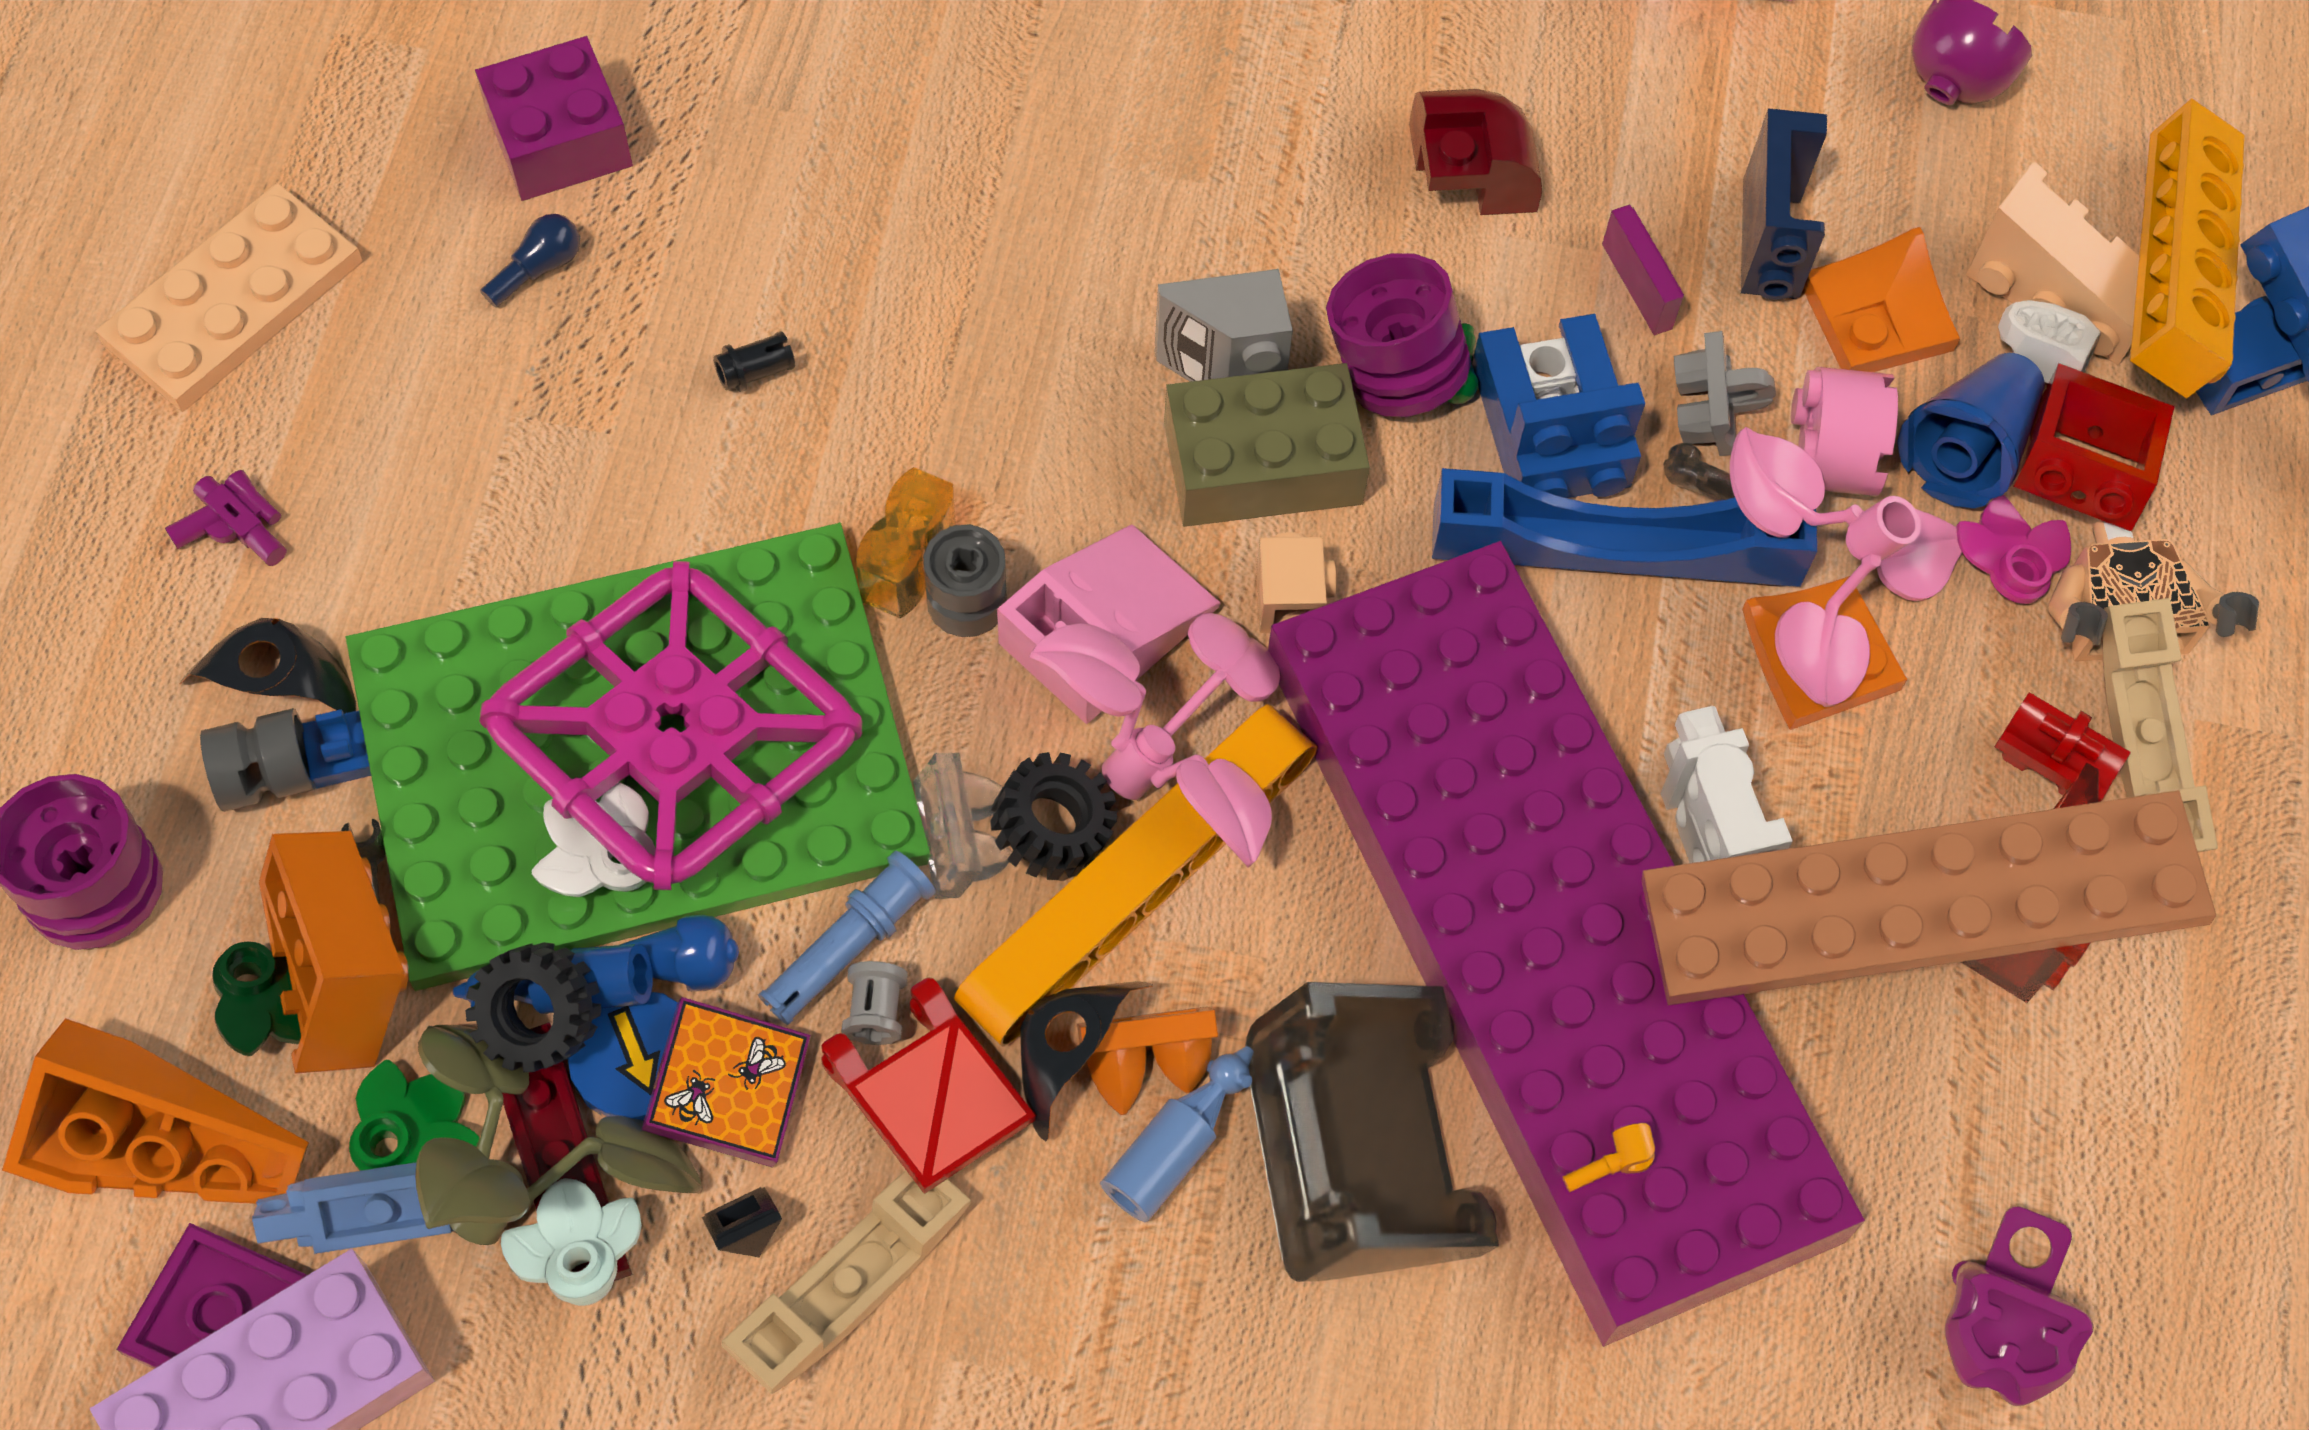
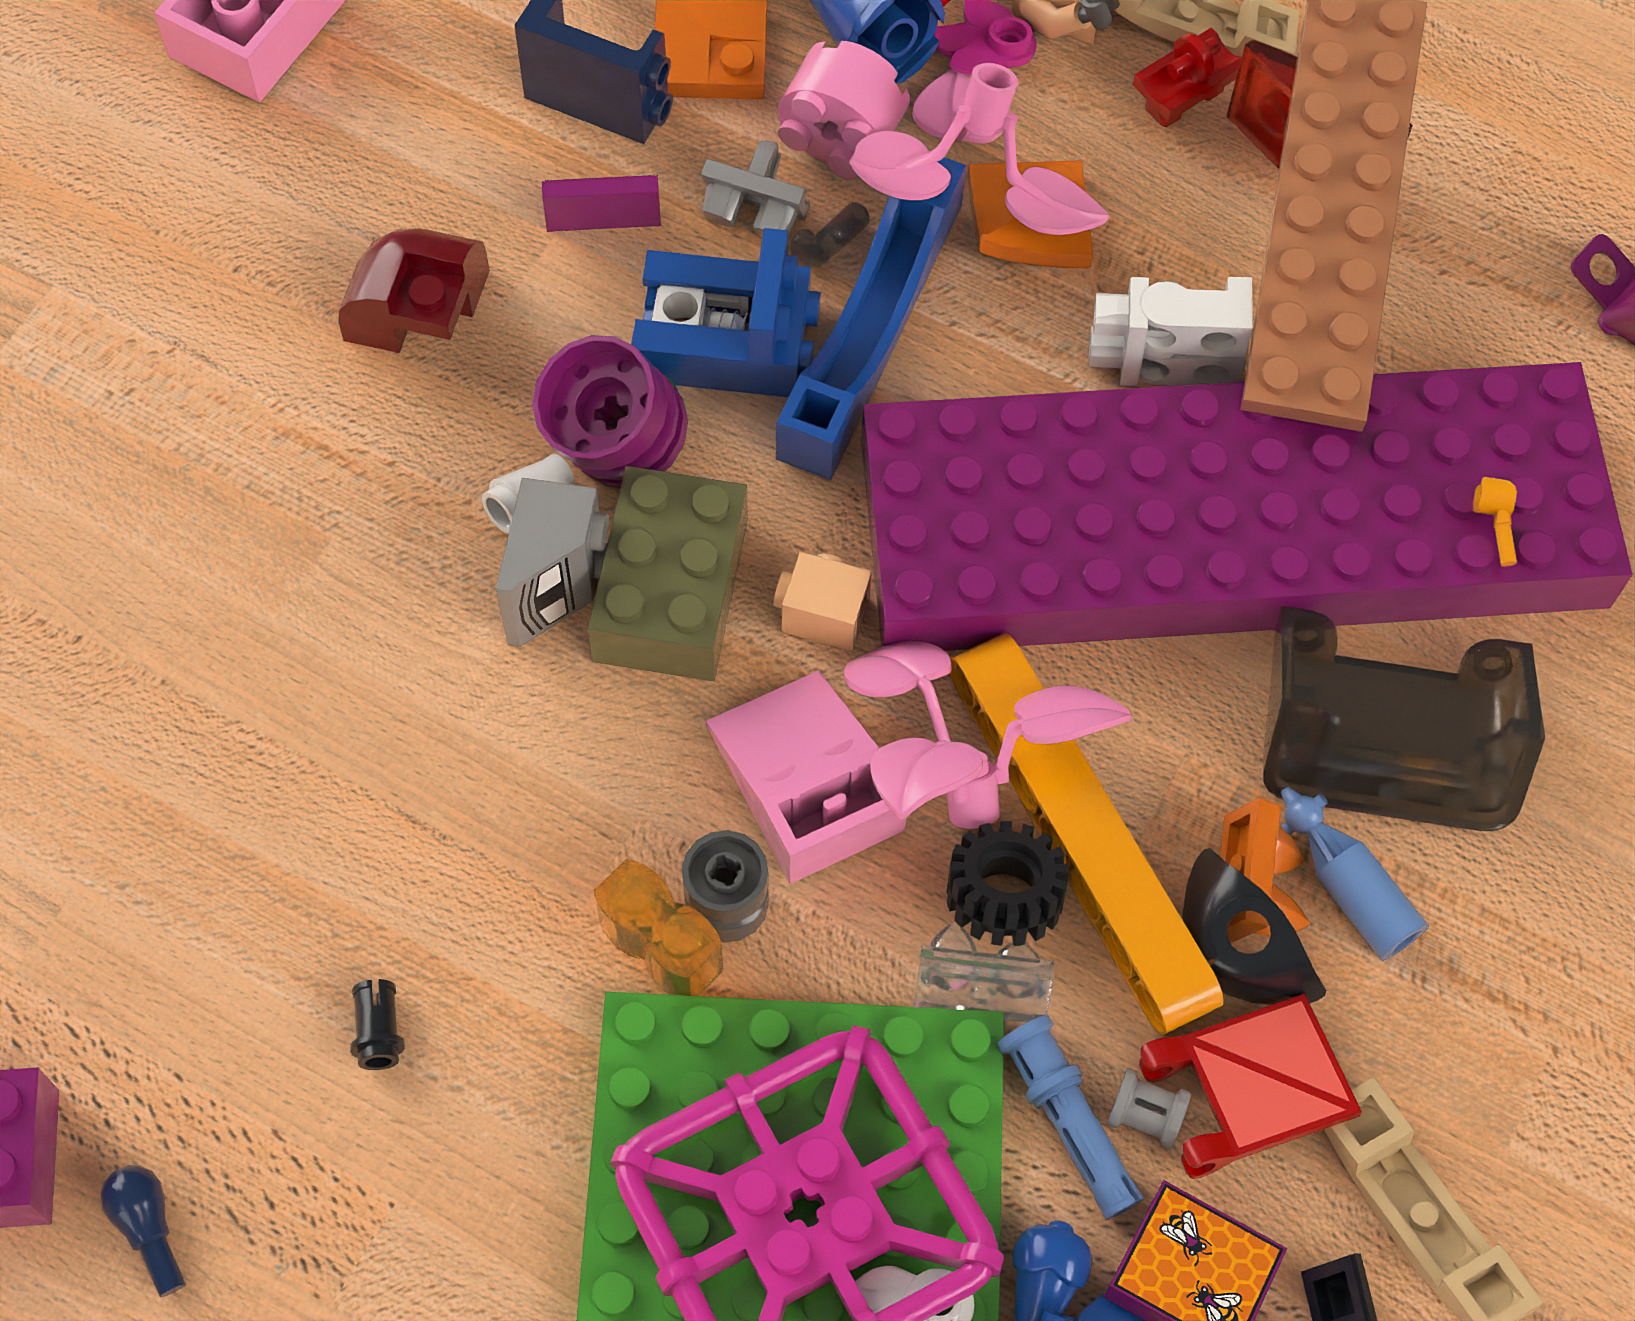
camera: 70 degrees left, 0 degrees up
(1306, 307) = (503, 491): none -> white cone

